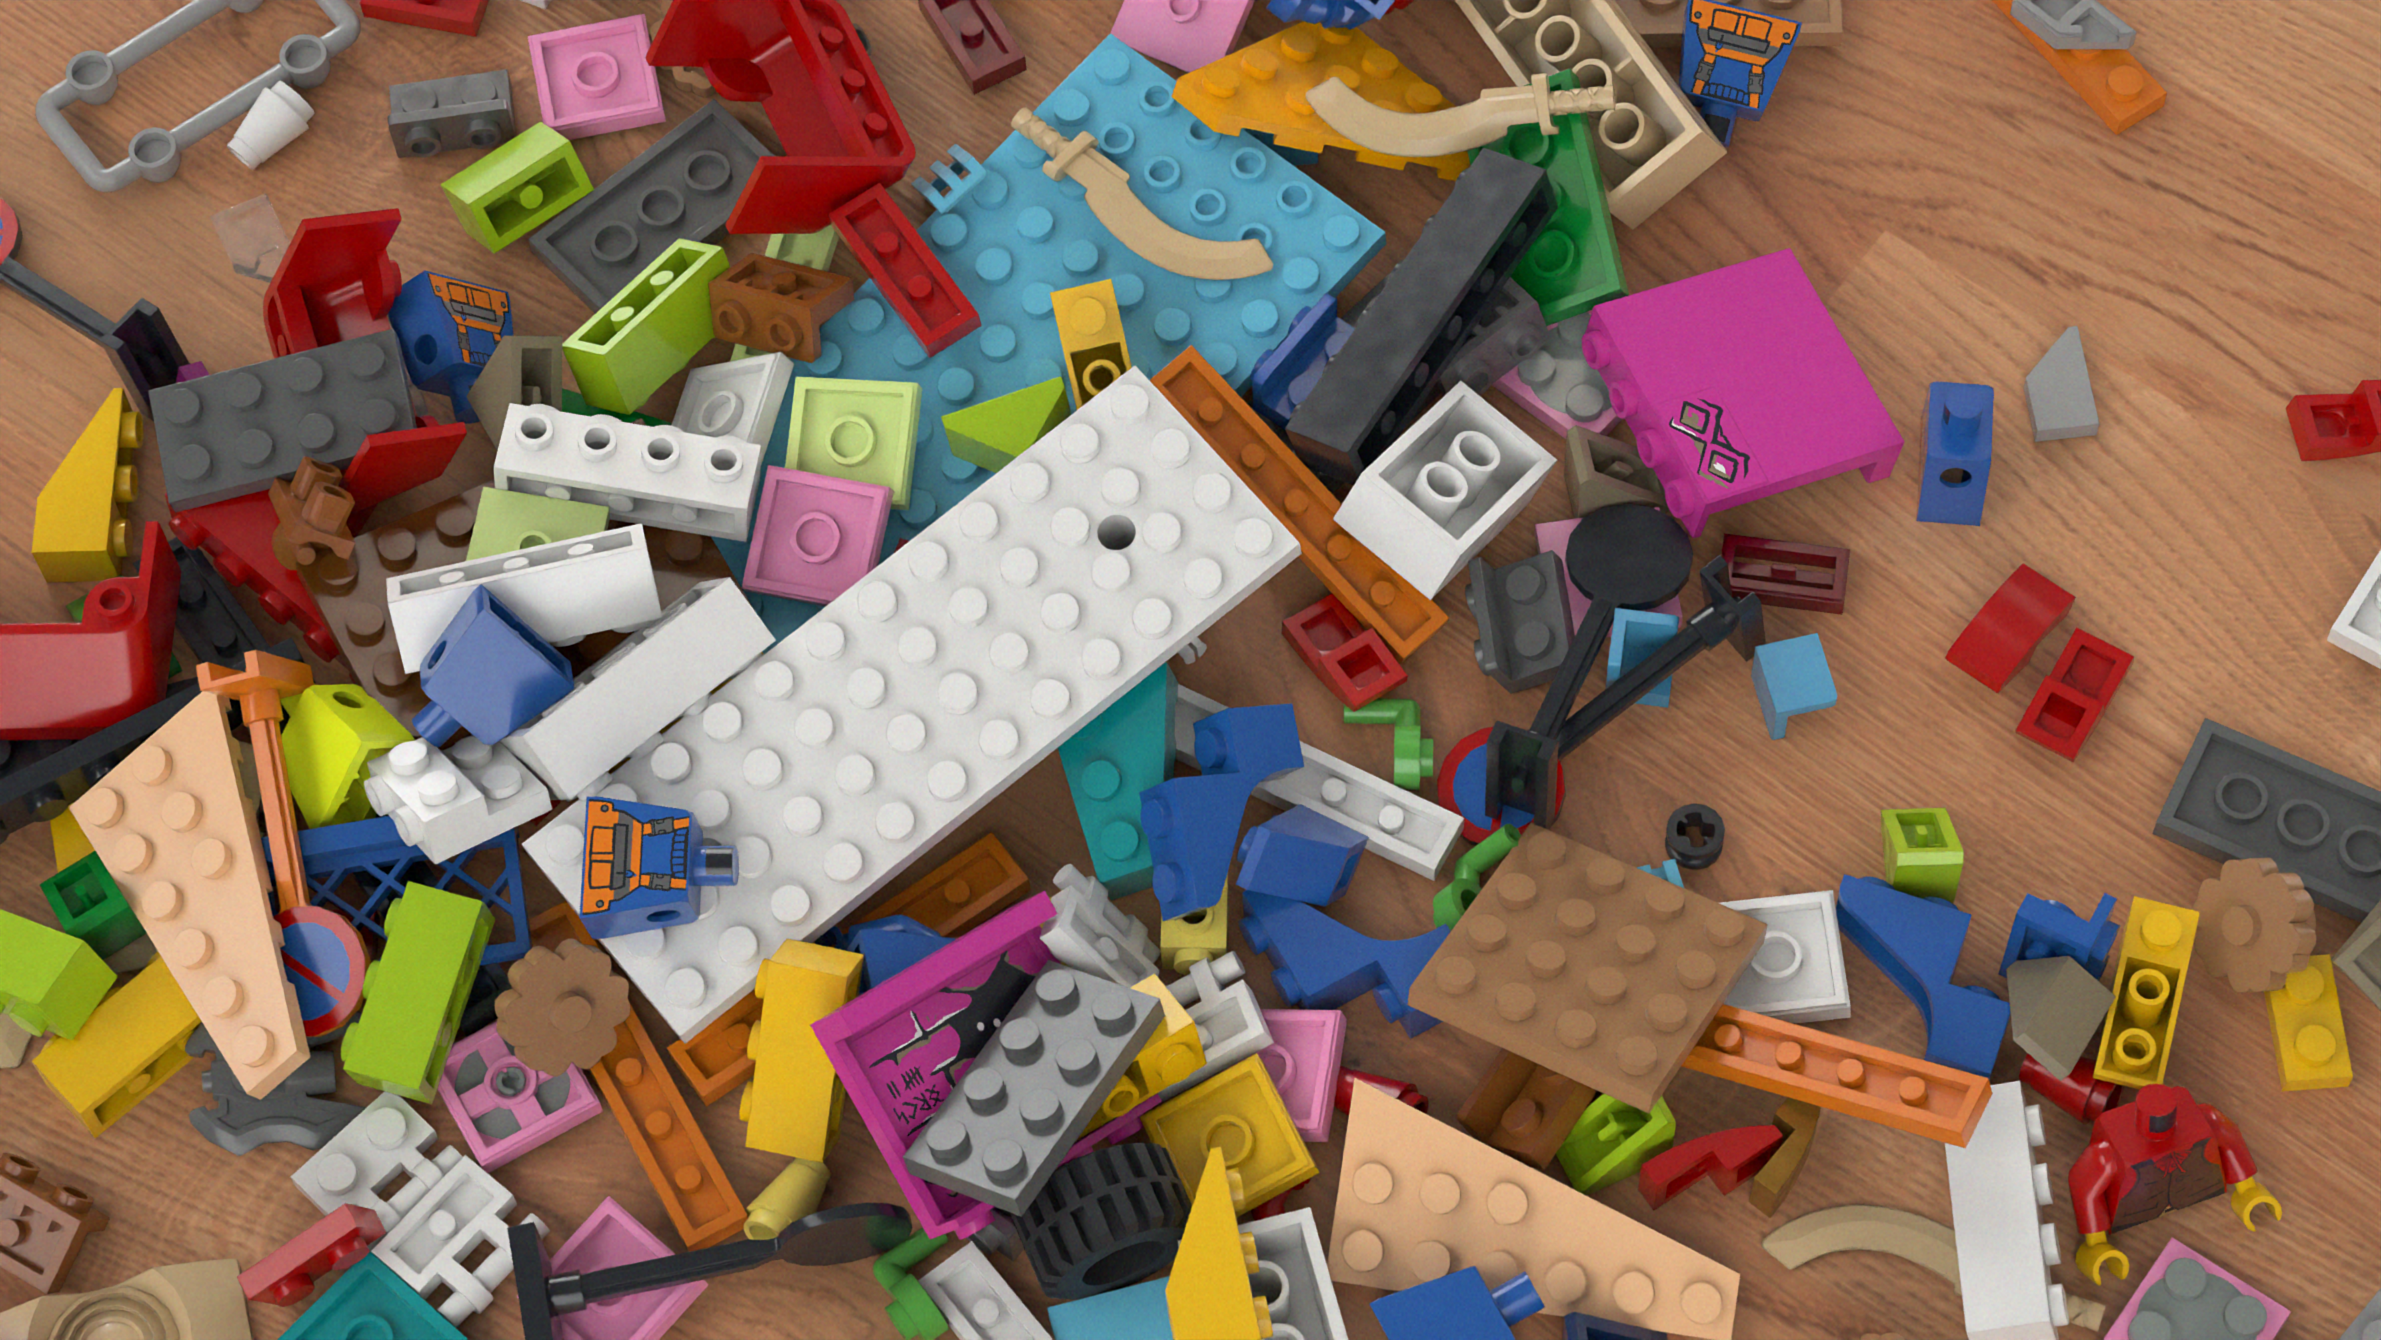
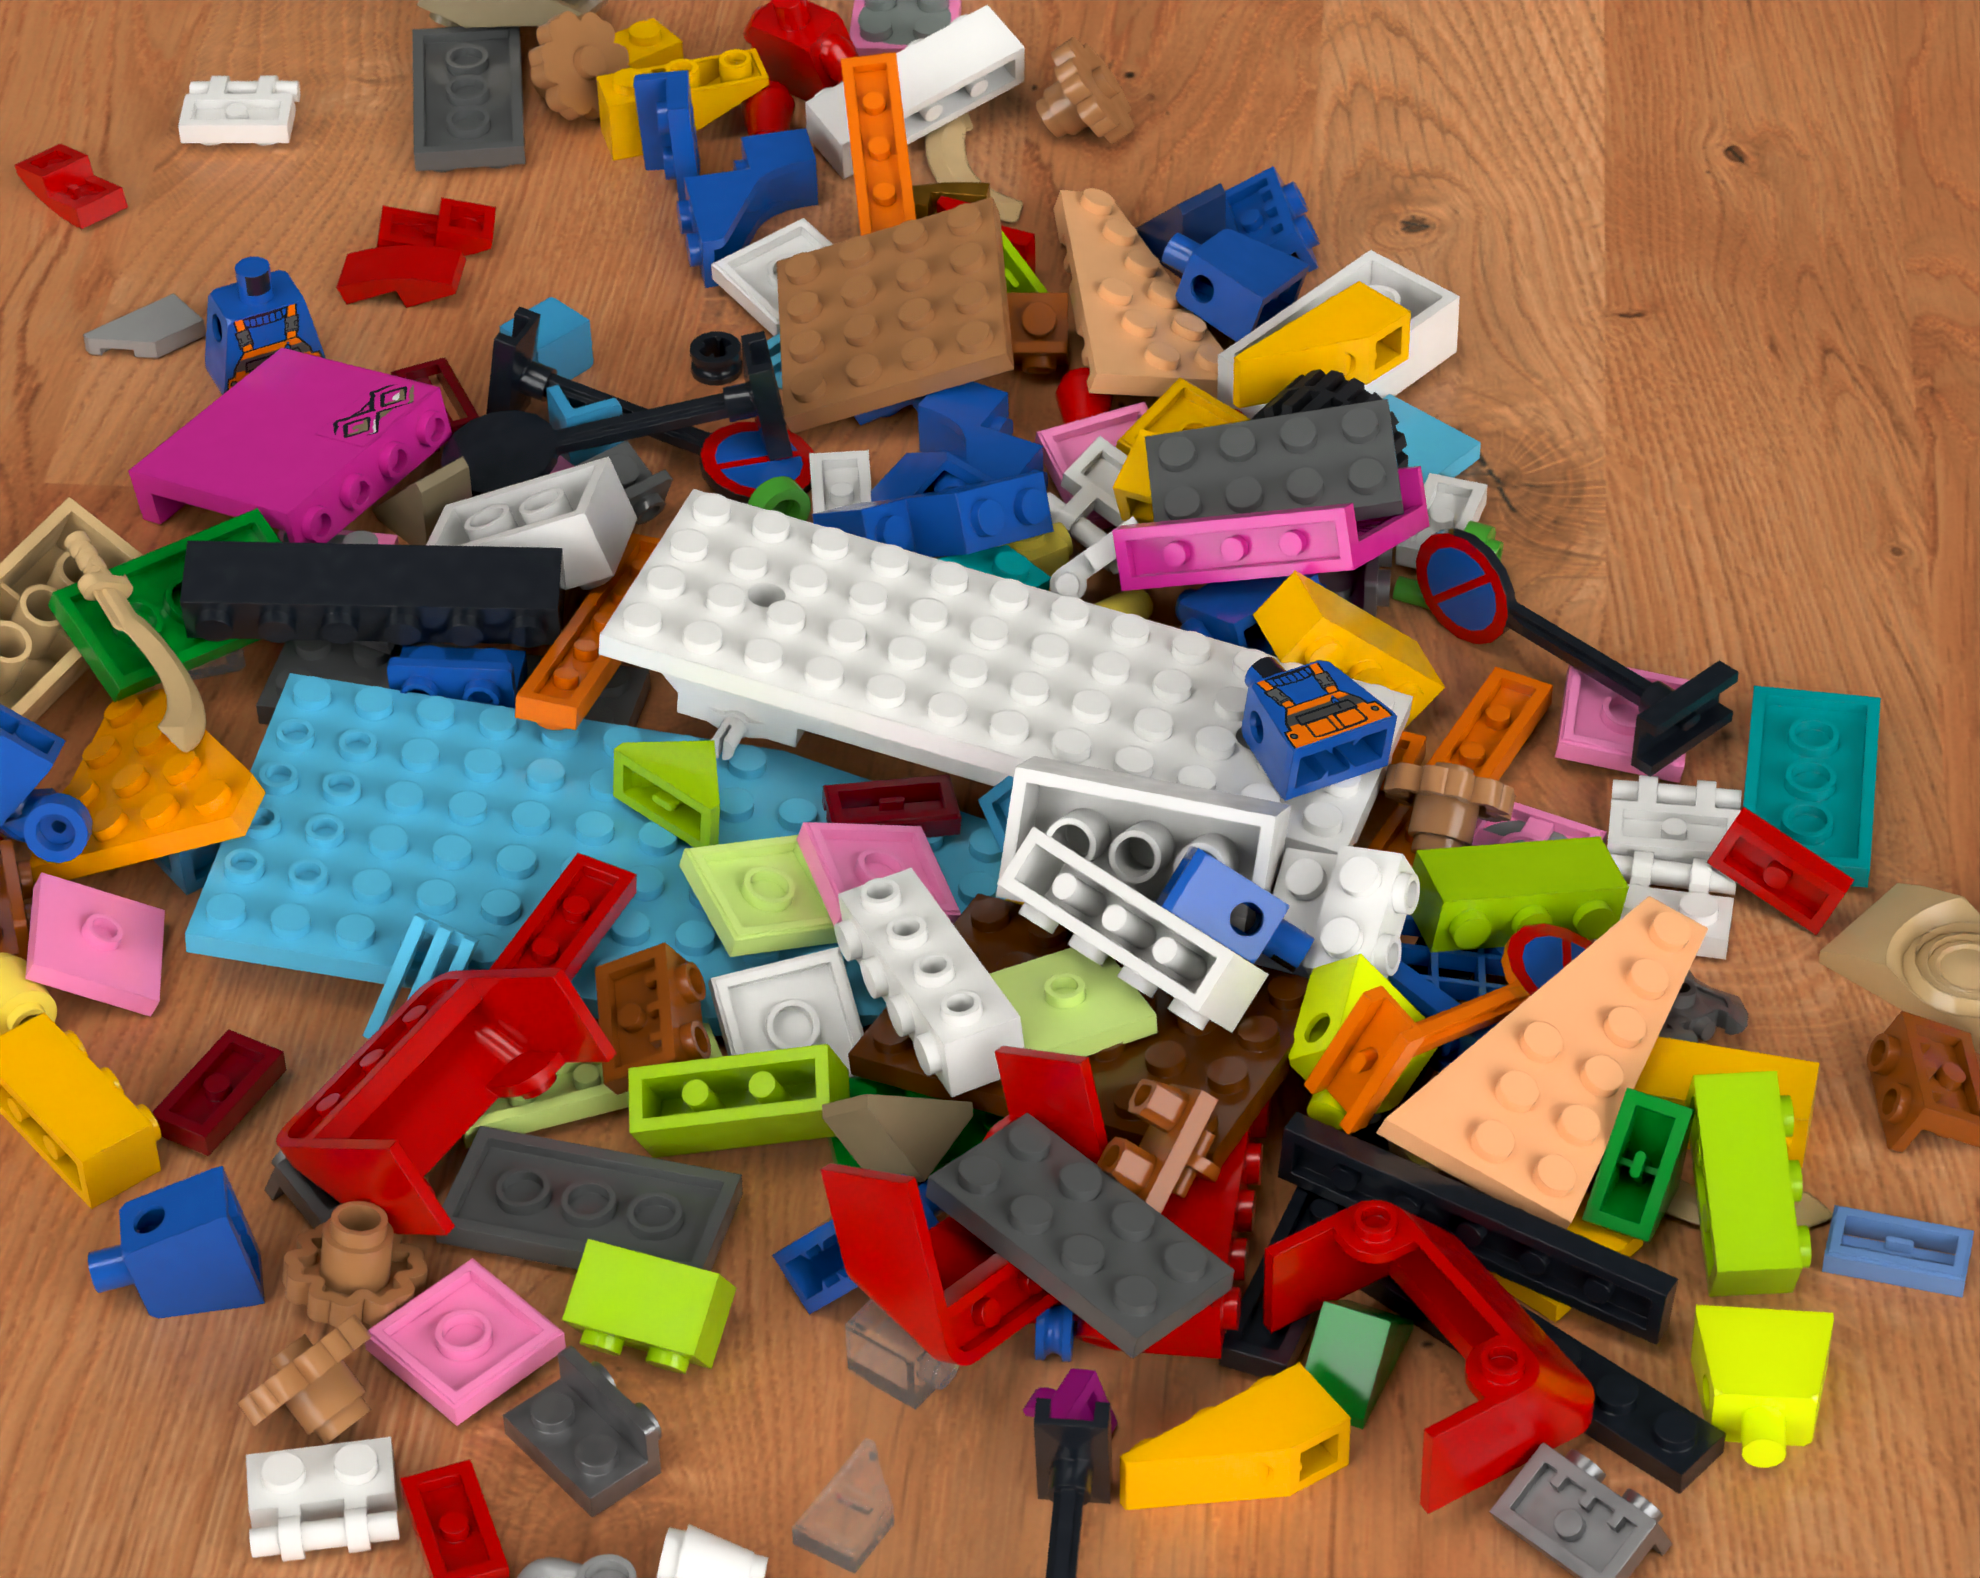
camera: 125 degrees left, 20 degrees down
(787, 1199) = (1466, 657): light yellow cone -> none
(1091, 337) = (560, 763): yellow slope -> none
(1129, 218) = (390, 828): tan sword -> none
(1457, 897) = (887, 432): bright green plate -> none
(1921, 852) = (642, 238): lime slope -> none
(2055, 1010) = (728, 113): dark tan slope -> none

